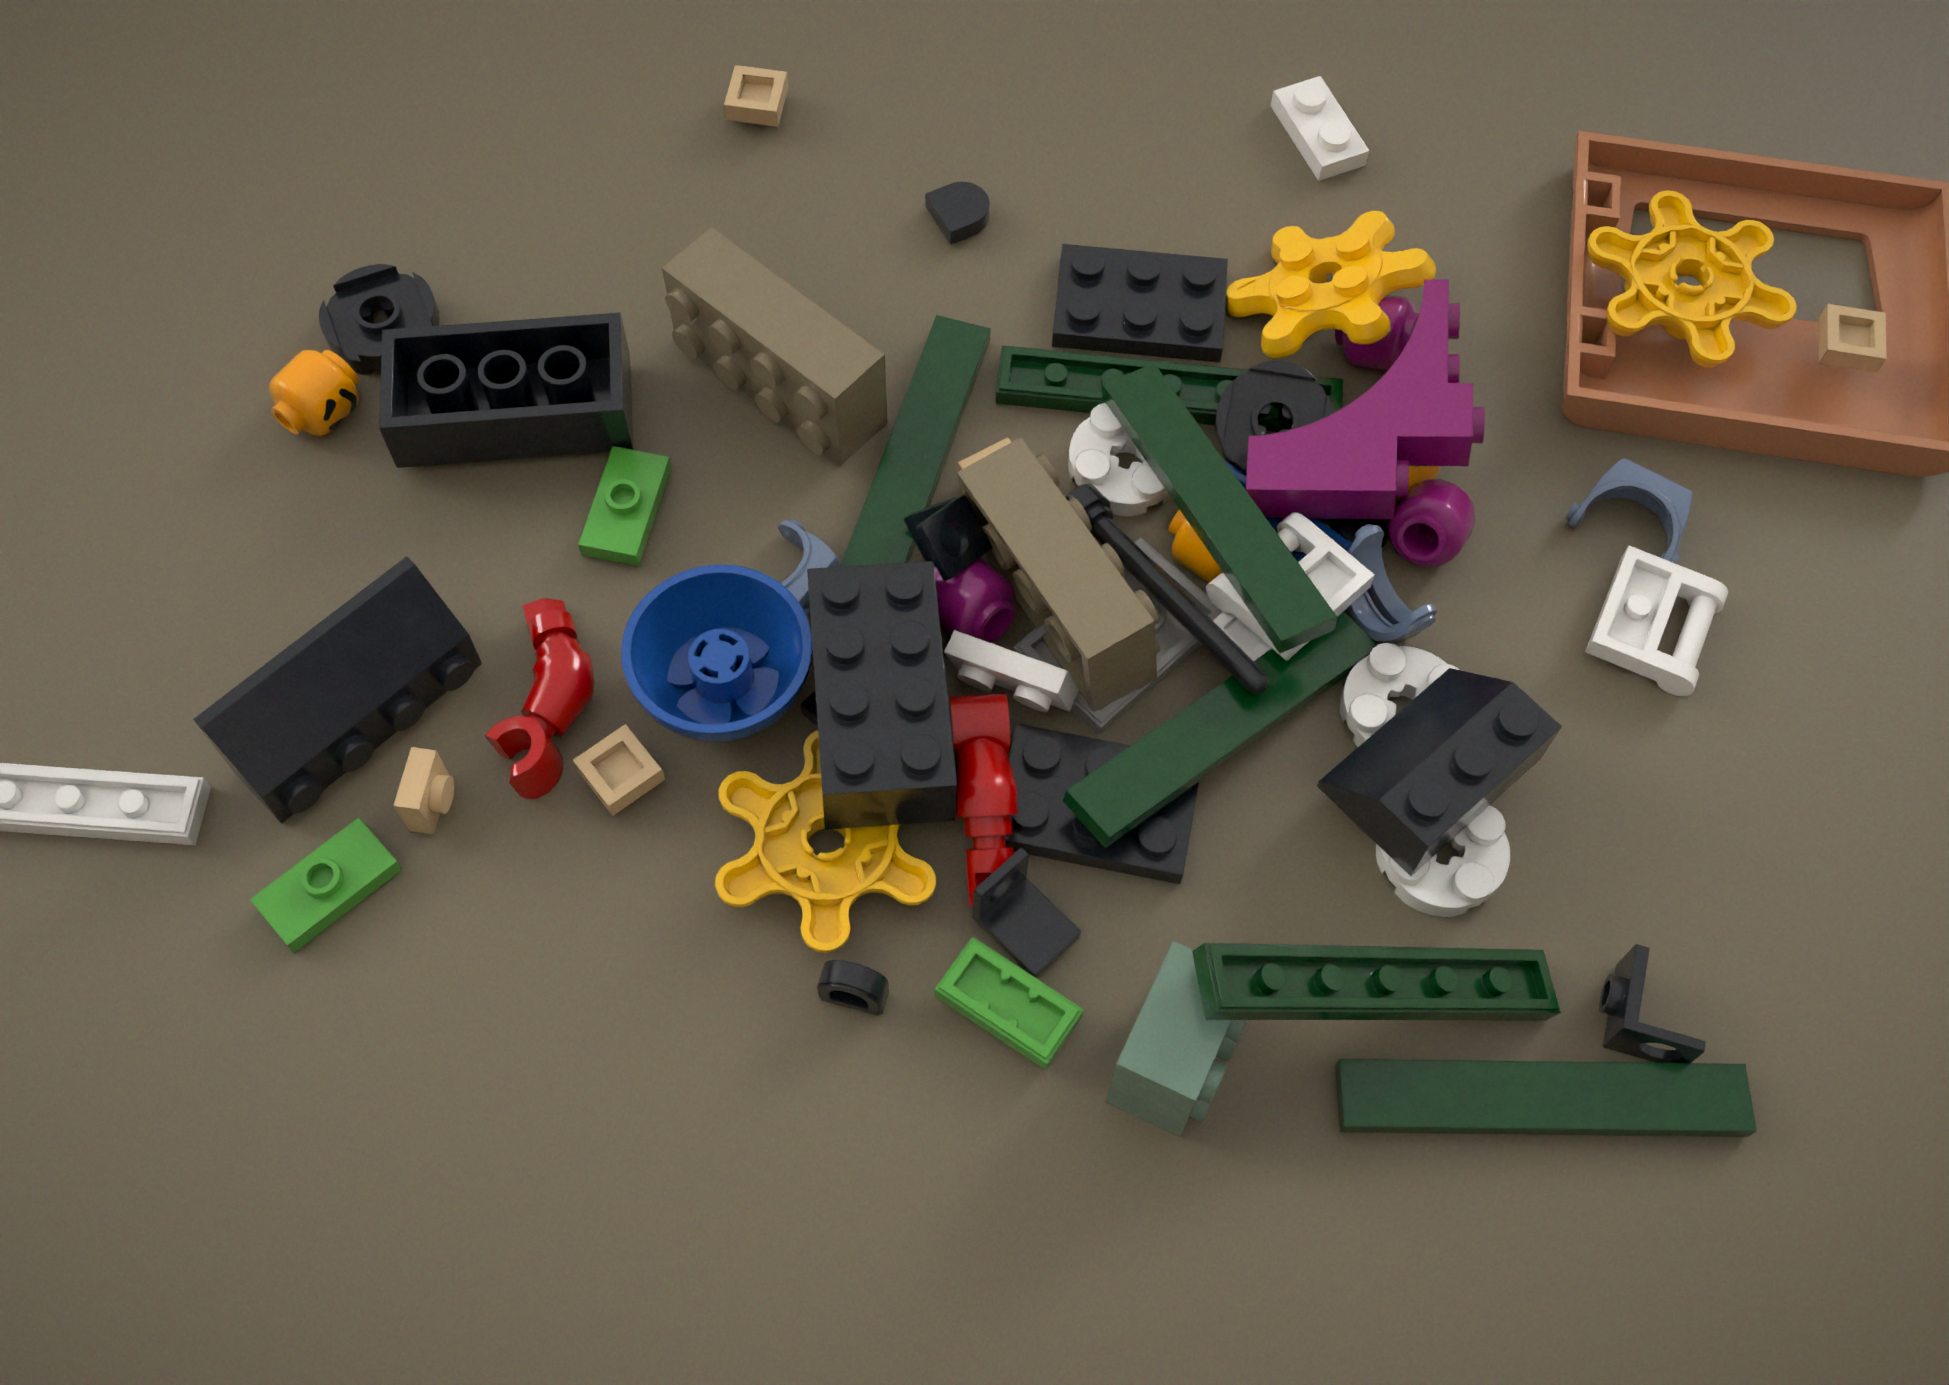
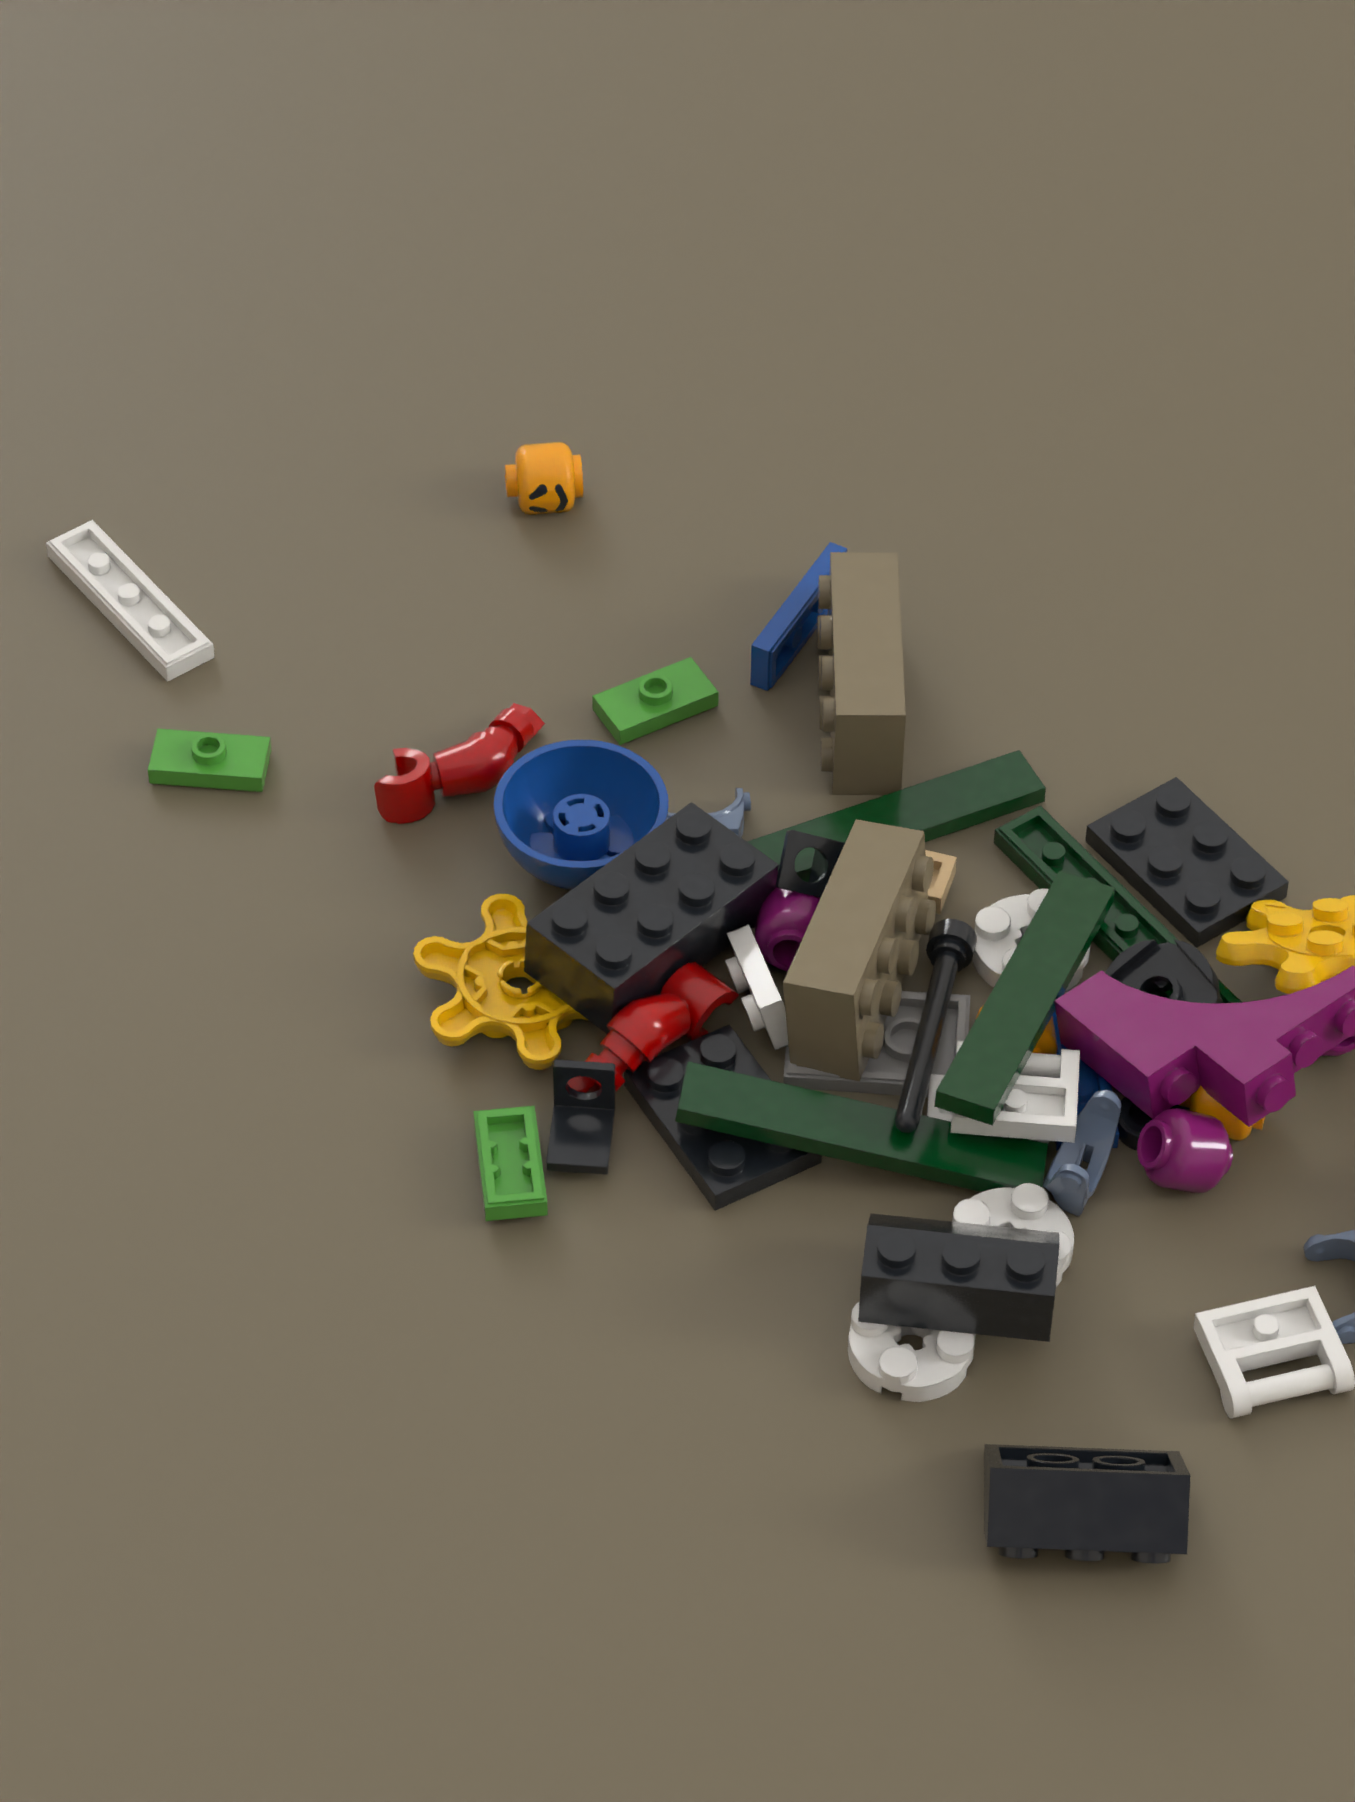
camera: 50 degrees right, 15 degrees down
(341, 691) = (341, 651): black slope -> none
(359, 295) = (653, 488): black plate -> none
(424, 791) = (321, 751): tan plate -> none
(505, 390) = (661, 566): black brick -> none
(619, 769) = (449, 839): tan plate -> none
(656, 343) = (790, 626): none -> blue tile
(756, 95) = (1086, 516): tan plate -> none
(853, 986) = (430, 1072): black tile -> none
(959, 210) = (1136, 702): black tile -> none
(1171, 1050) = (571, 1252): sand green brick -> none
(1372, 983) = (734, 1330): dark green tile -> none
(1544, 1098) = (777, 1524): dark green tile -> none
(1622, 1003) = (896, 1517): black bracket -> none
(1707, 855) = (1086, 1502): none -> black slope

